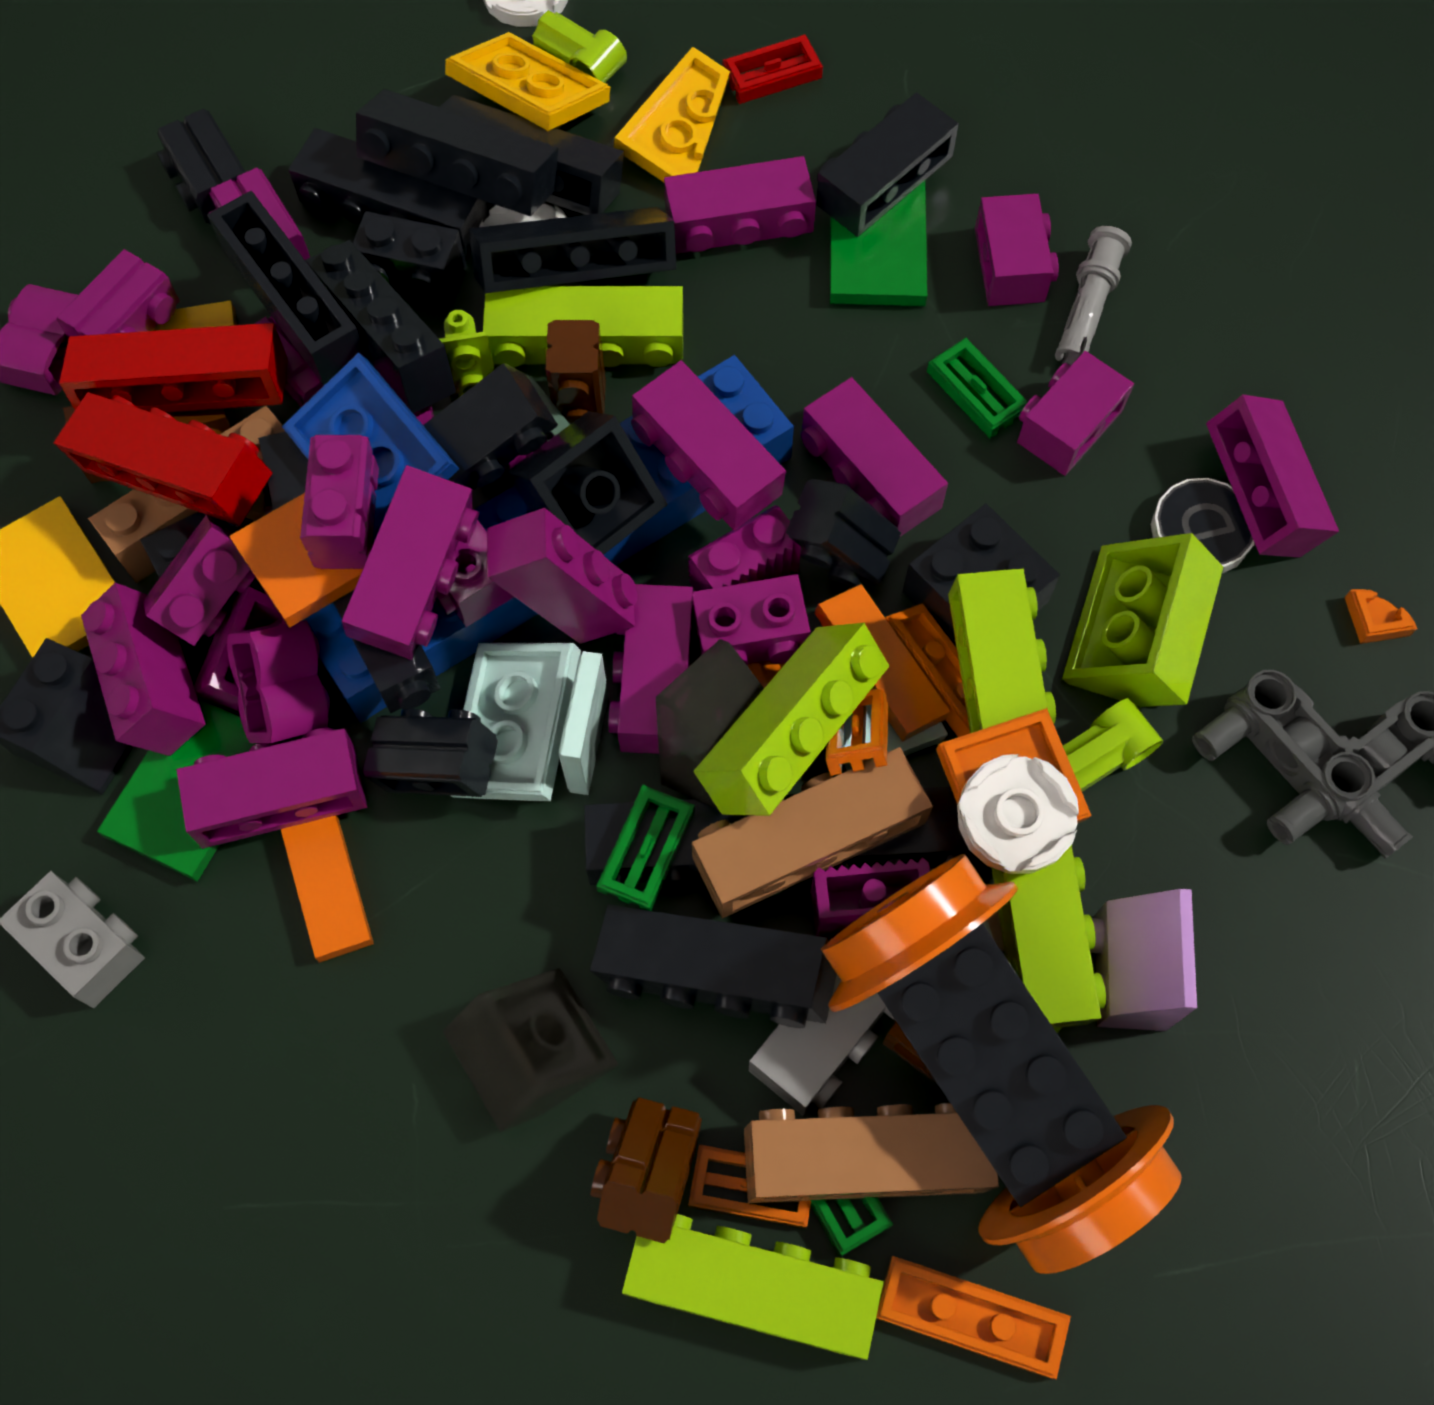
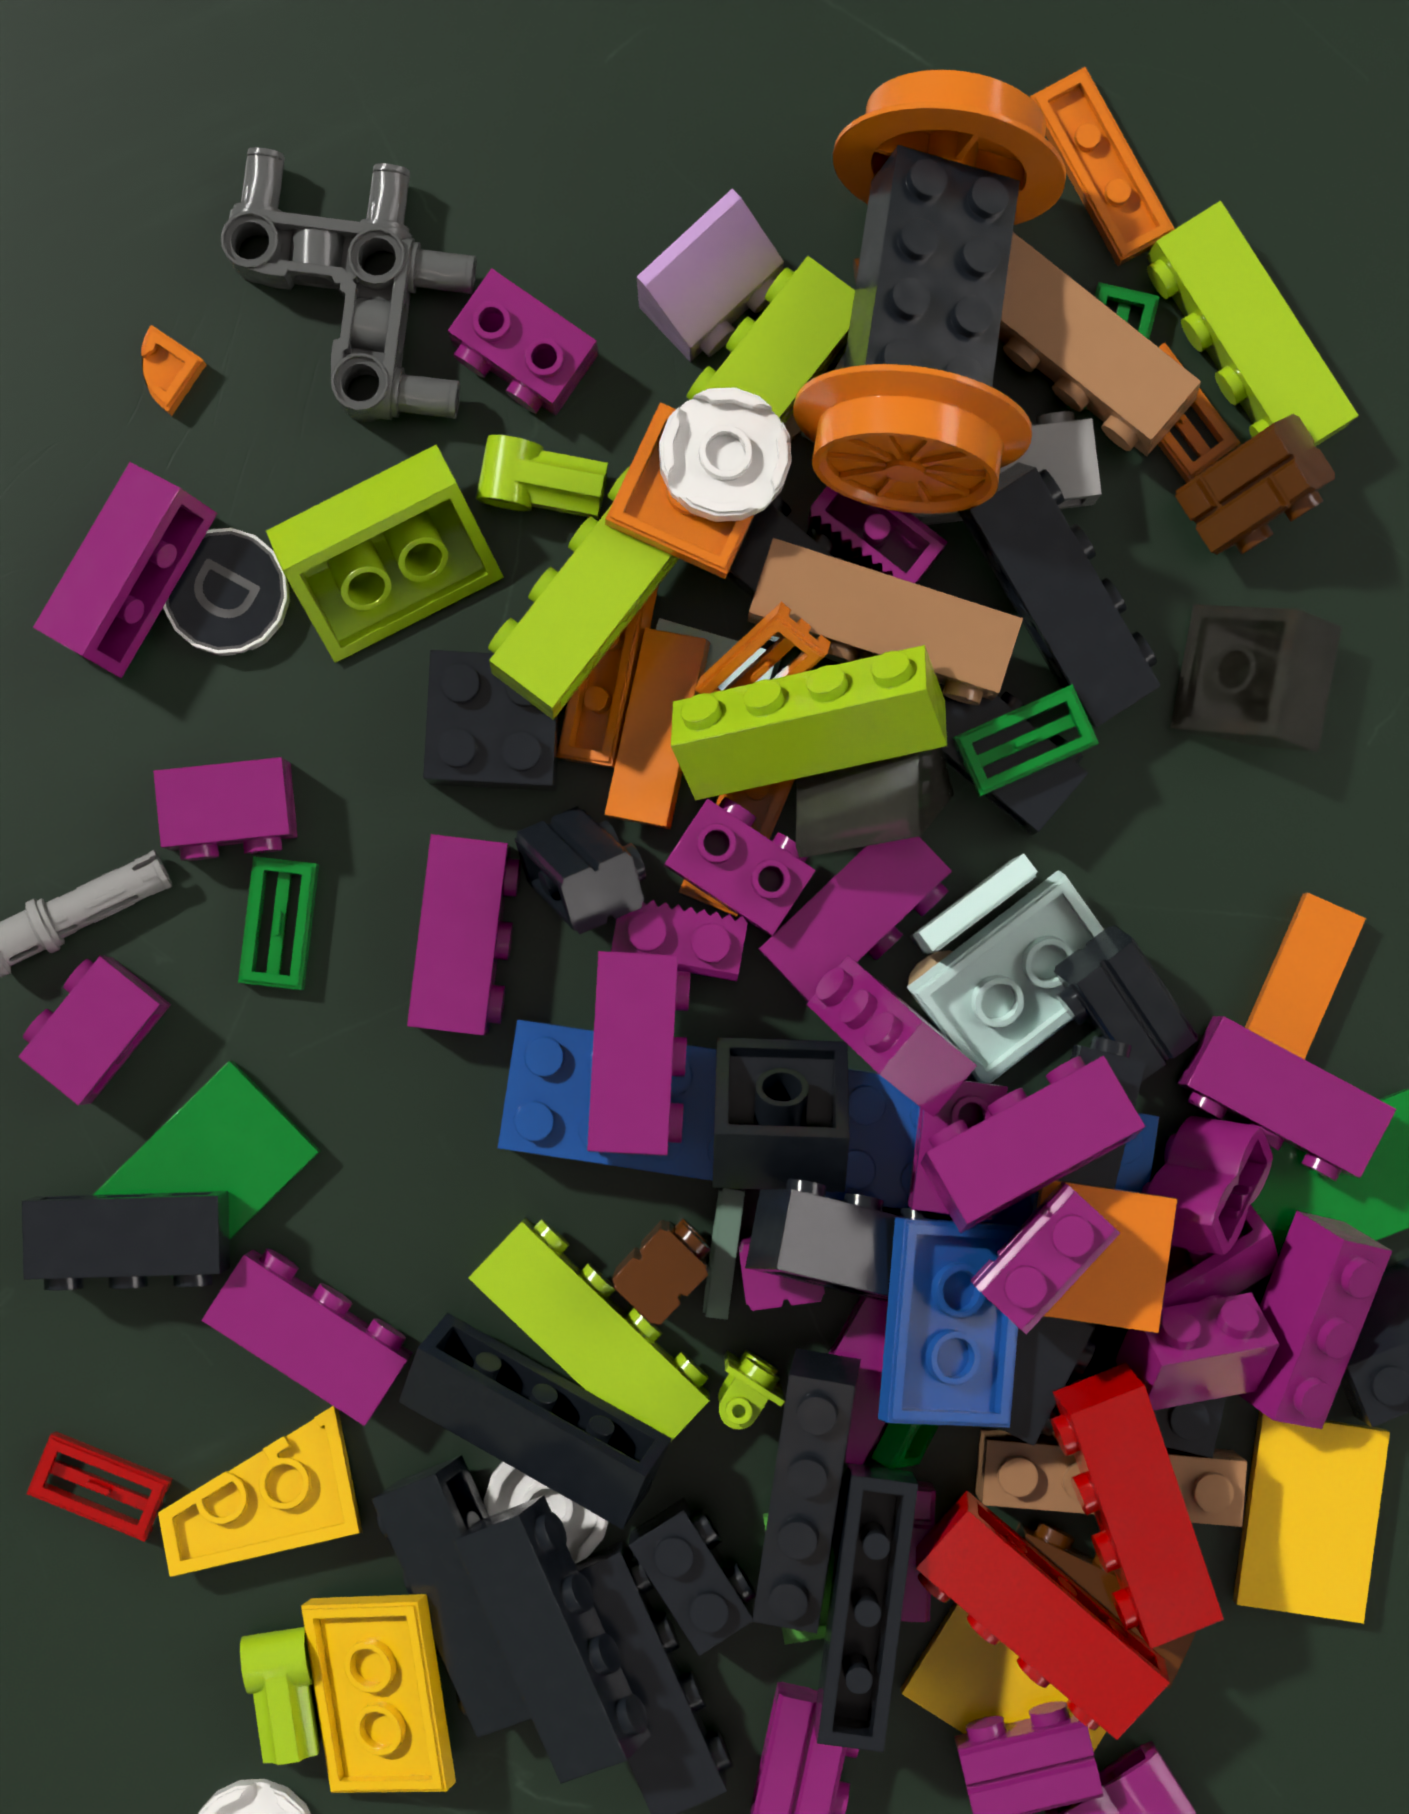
camera: 140 degrees left, 20 degrees up
(1205, 816) = (521, 344): none -> magenta brick

